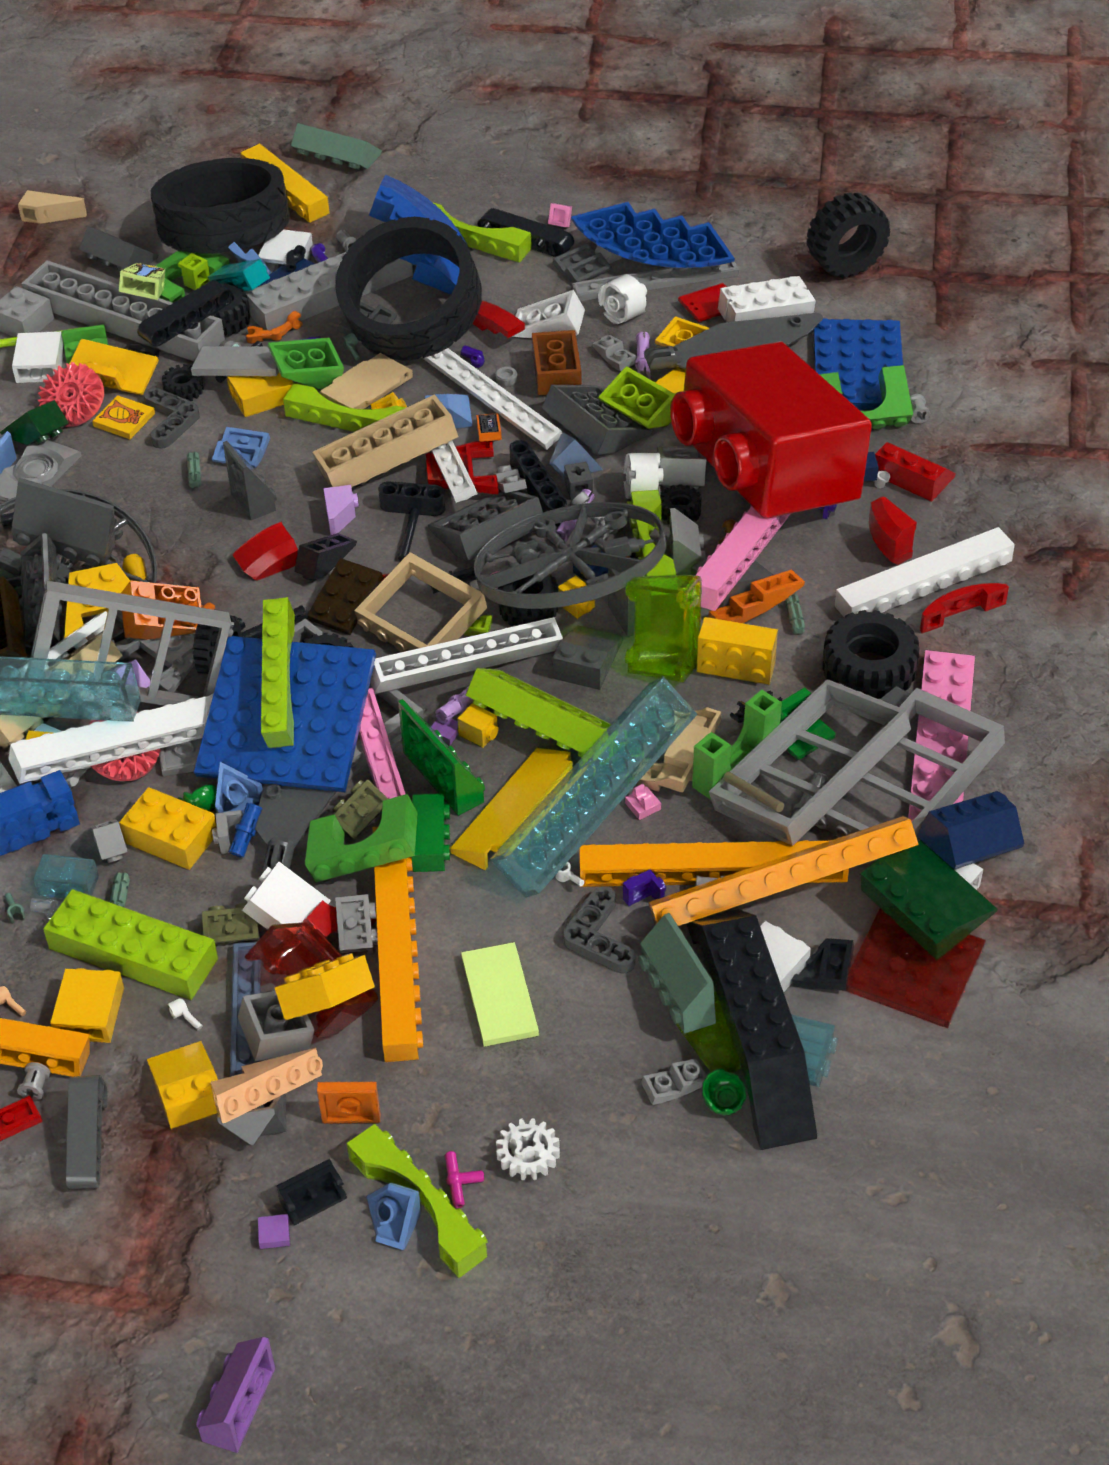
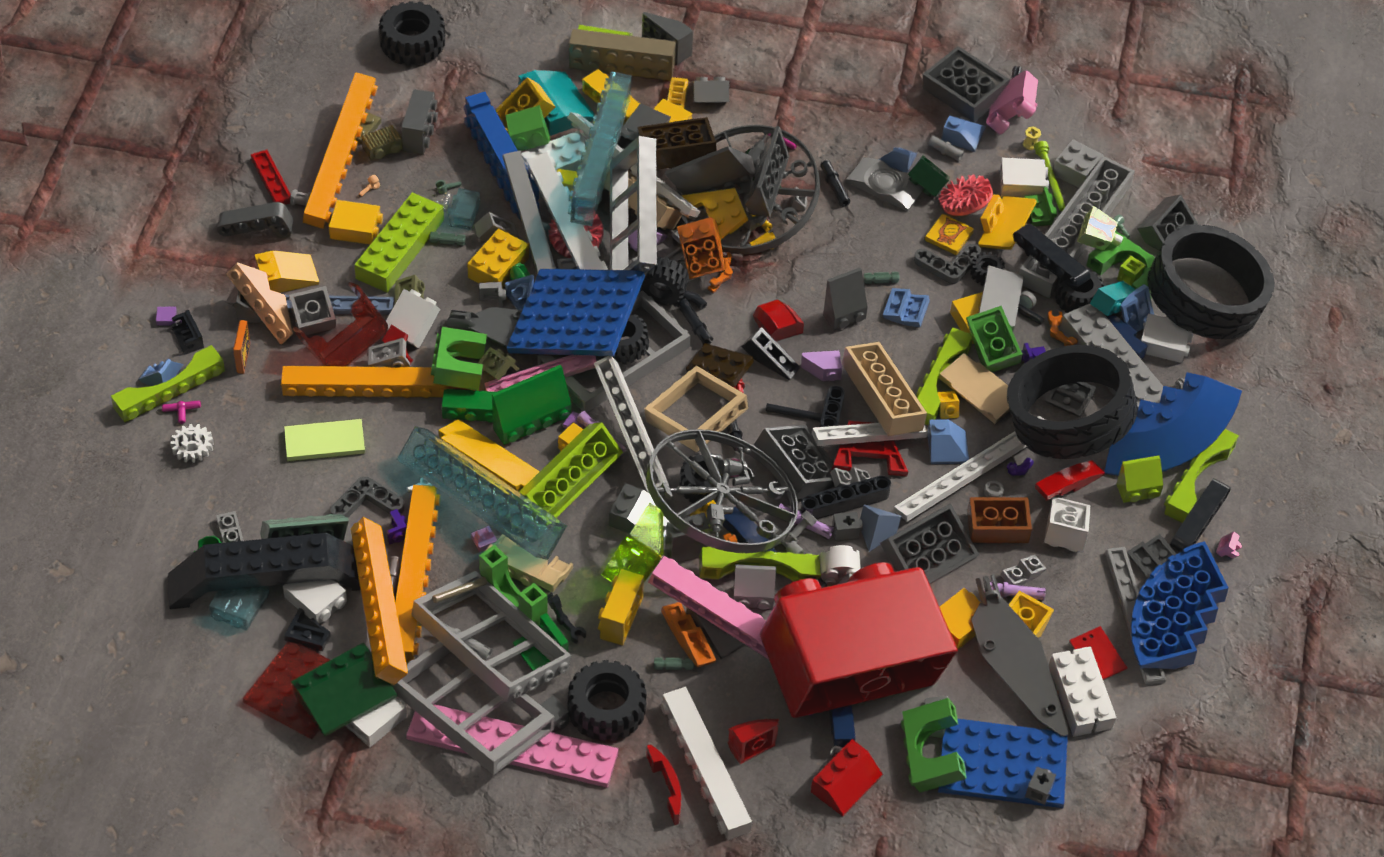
camera: 90 degrees right, 5 degrees up
(47, 207) = (1228, 177): tan slope -> none
(103, 780) = (528, 211): none -> light grey tile
(180, 1008) = (345, 271): white hand -> none
(237, 1394) = (53, 293): medium lavender slope -> none
(245, 830) = (487, 300): blue pin -> none
(276, 704) = (631, 289): lime arch -> none
(293, 257) = (1141, 334): black arm -> none
(300, 193) = (1273, 339): yellow brick -> none
(318, 252) = (1169, 361): dark purple arm -> none
(324, 985) = (320, 324): yellow brick -> none
(334, 146) = (1333, 378): sand green slope -> none
(480, 626) = (685, 450): lime tile -> none
(488, 427) = (919, 469): tile -> none
(490, 266) = (1140, 479): none -> lime slope
(622, 299) = (1088, 576): white brick -> none
(639, 399) = (949, 573): lime slope -> none
(833, 223) = (1166, 757): black tyre -> none
(892, 324) = (1040, 785): none -> dark grey brick
(920, 407) = (930, 796): light grey bush -> none
(973, 830) = (403, 735): dark blue slope -> none

